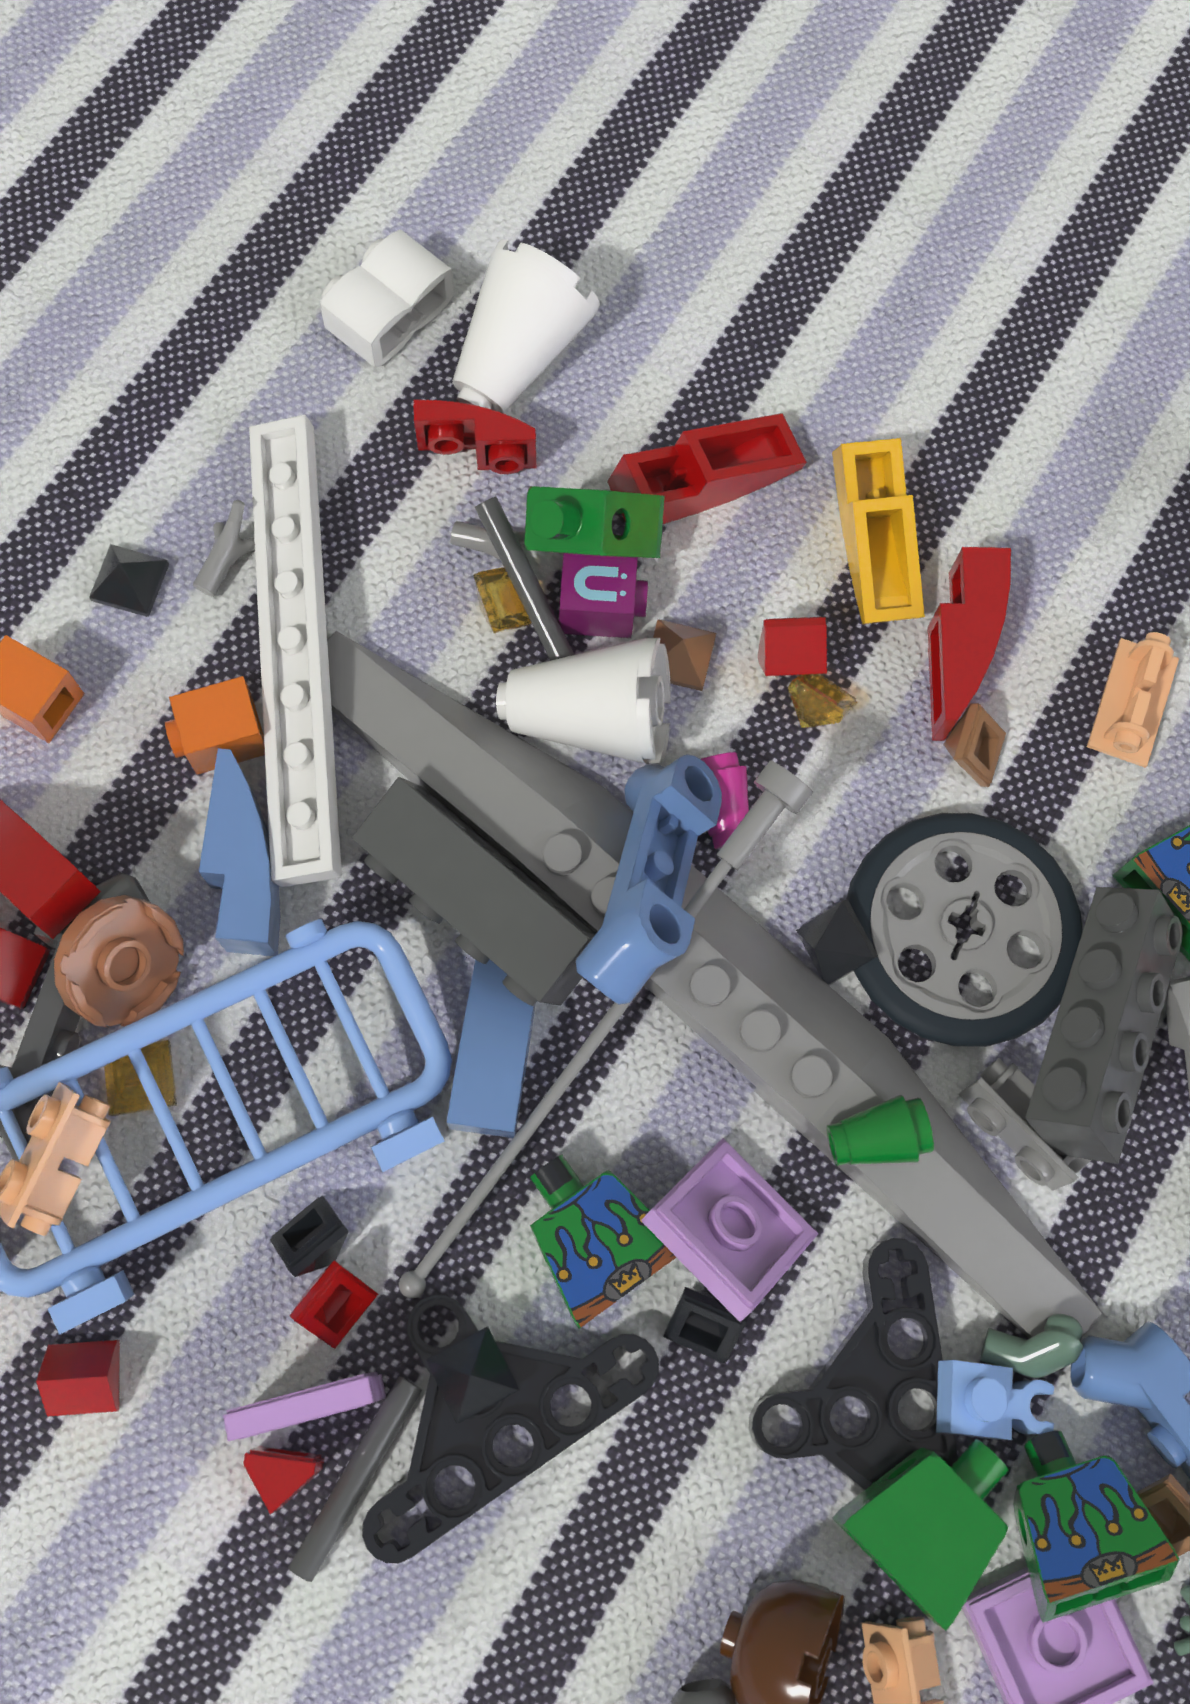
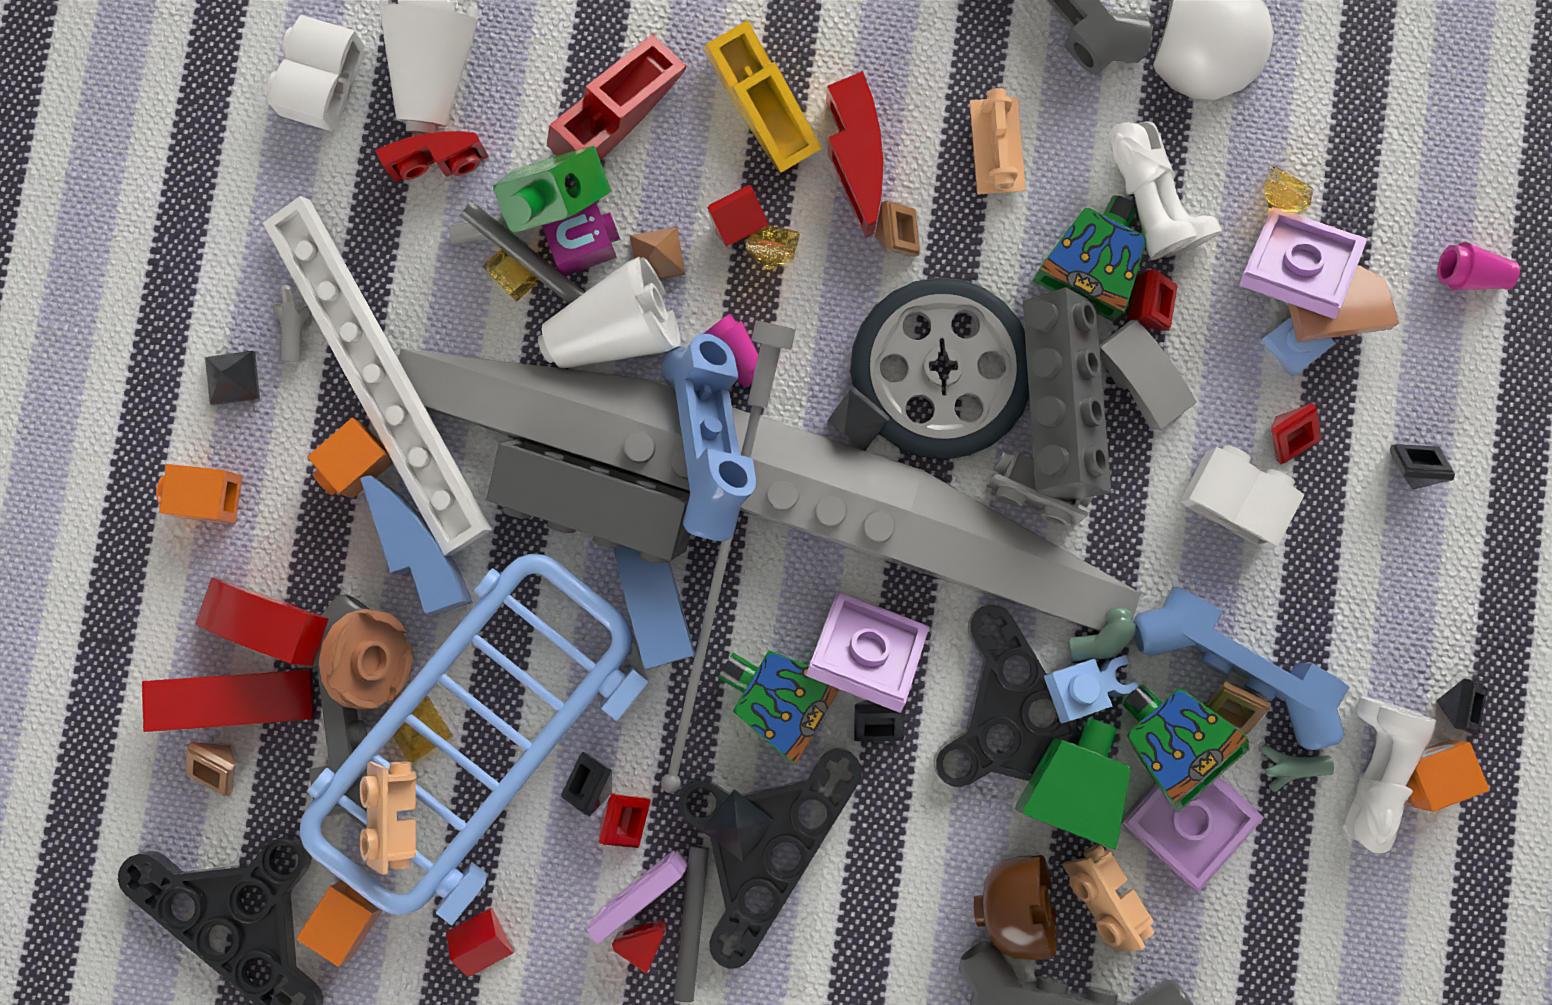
camera: 15 degrees left, 10 degrees up
(883, 1134) = (943, 545): green cone -> none

